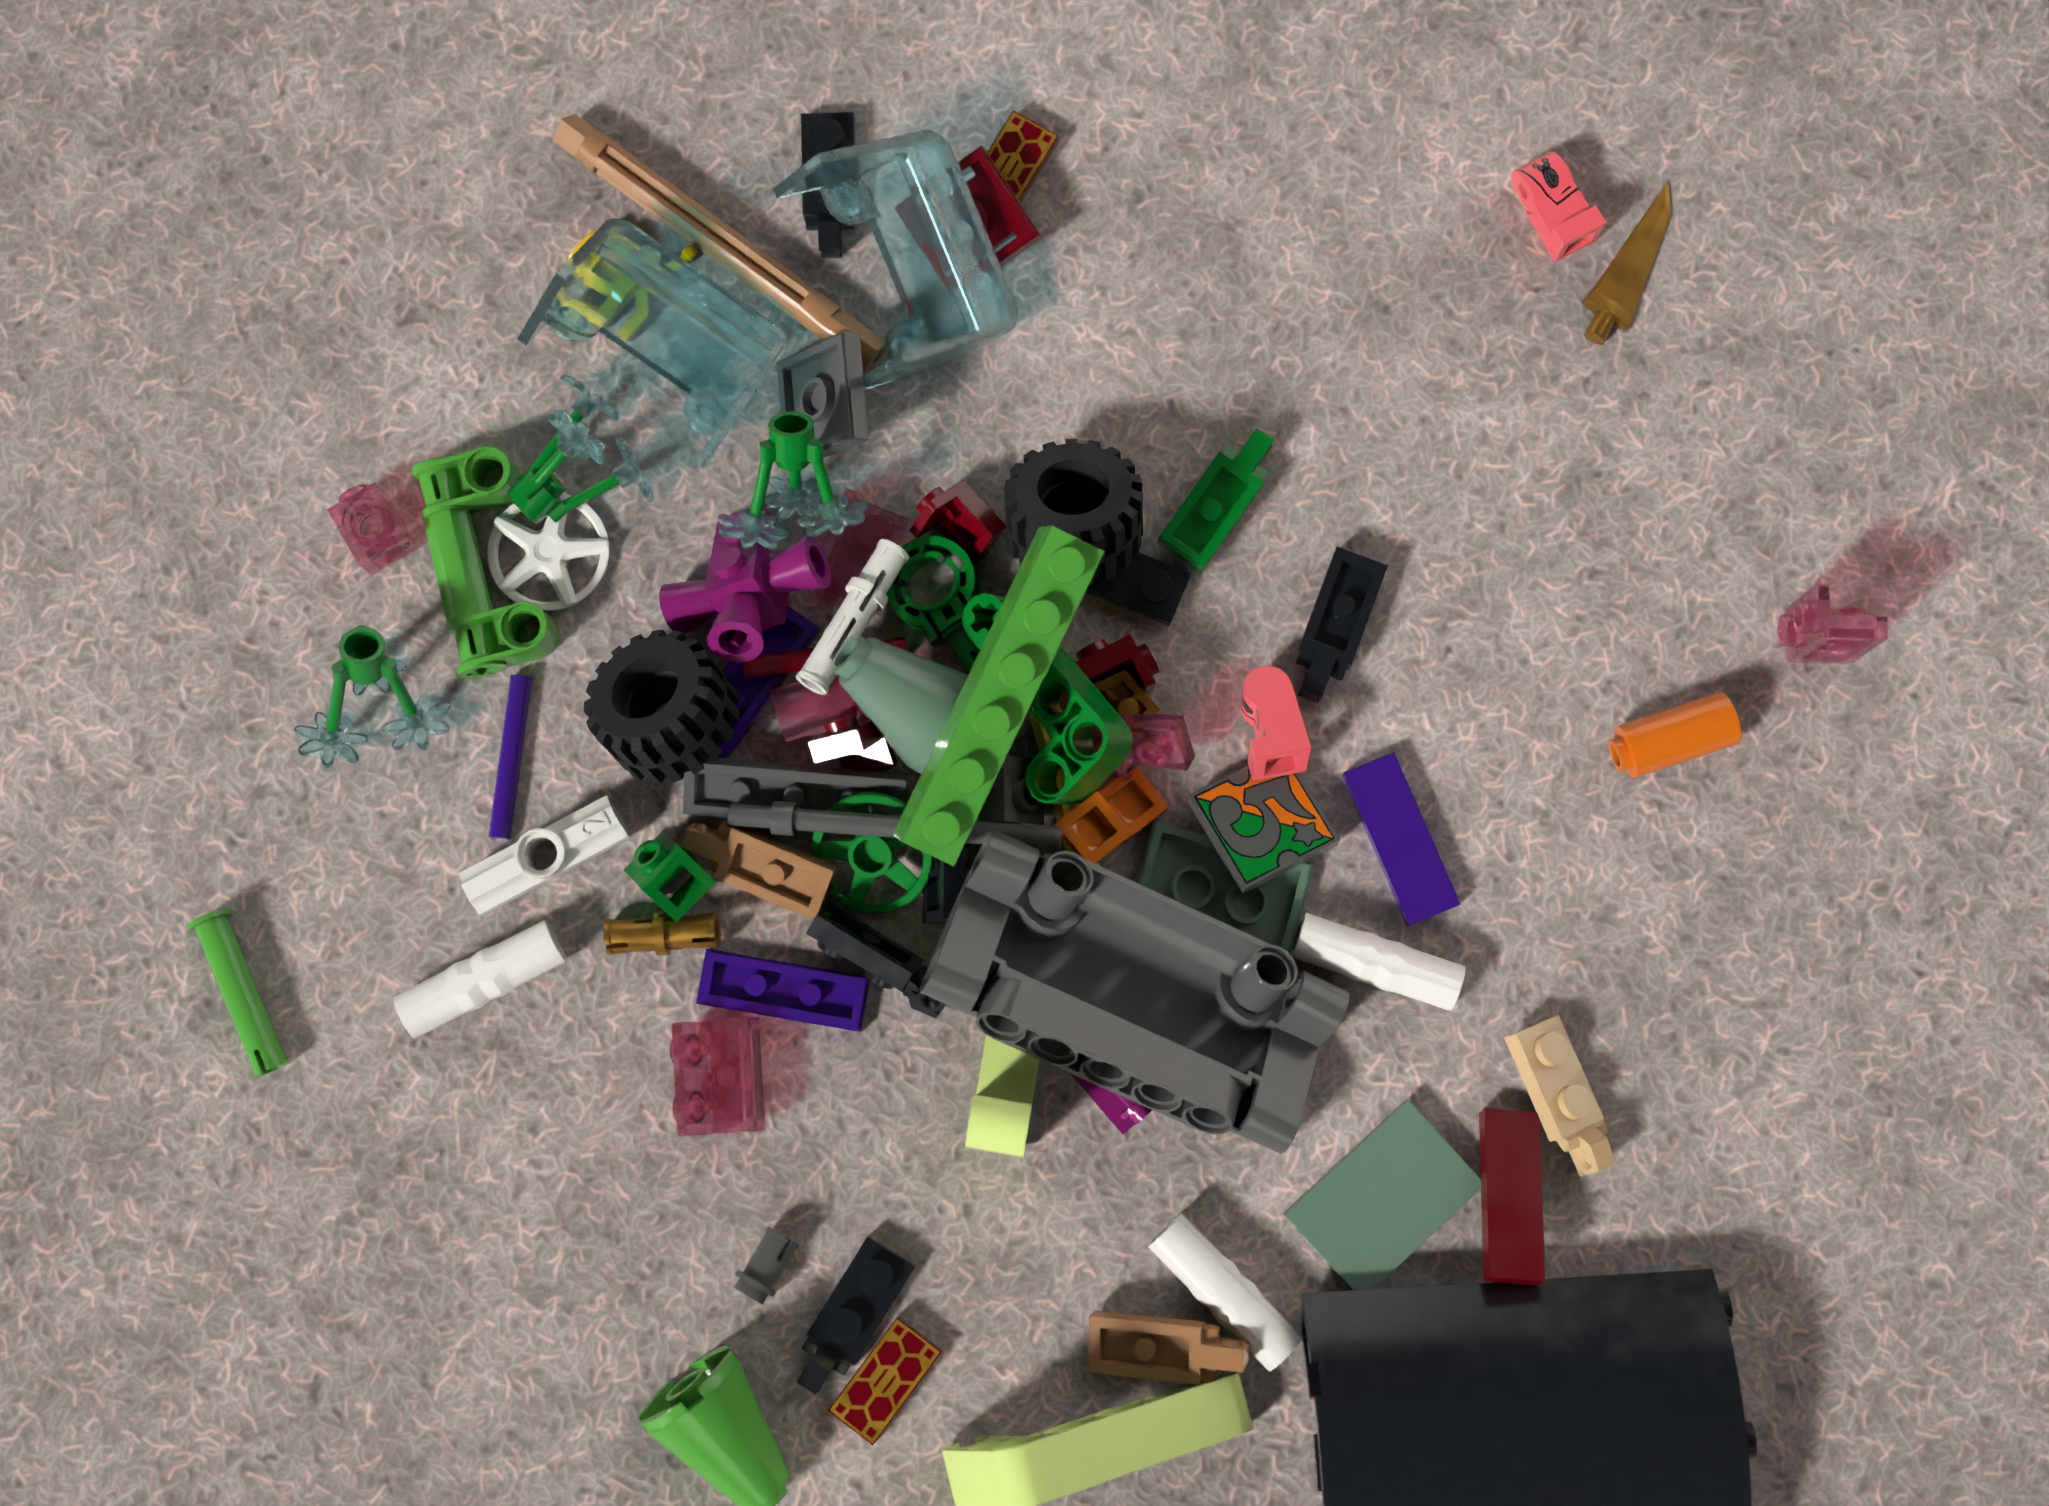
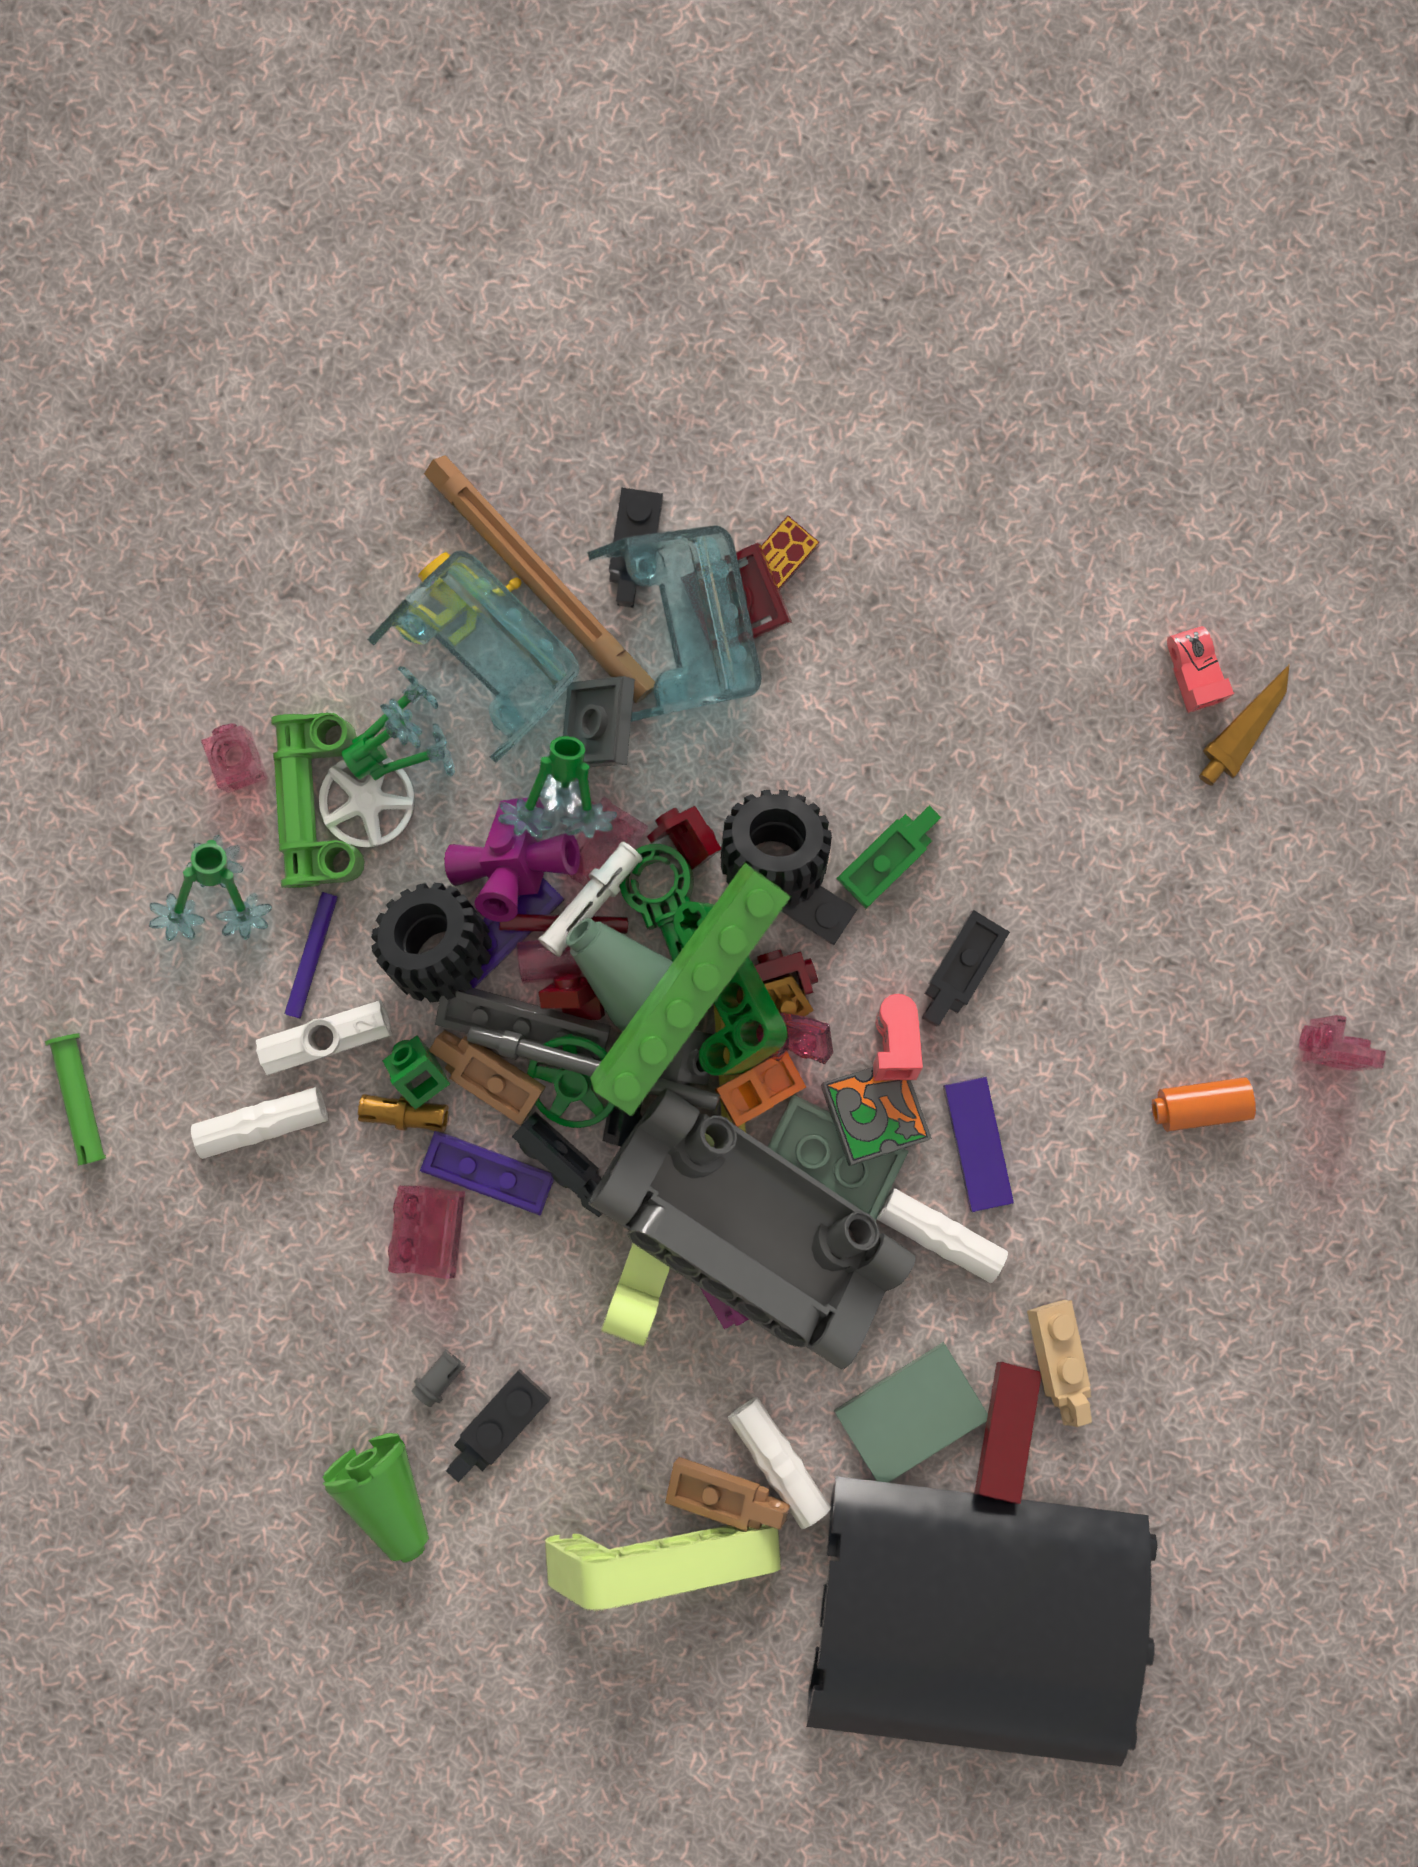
camera: 10 degrees right, 5 degrees up
(885, 1380) = (512, 1479): tile -> none

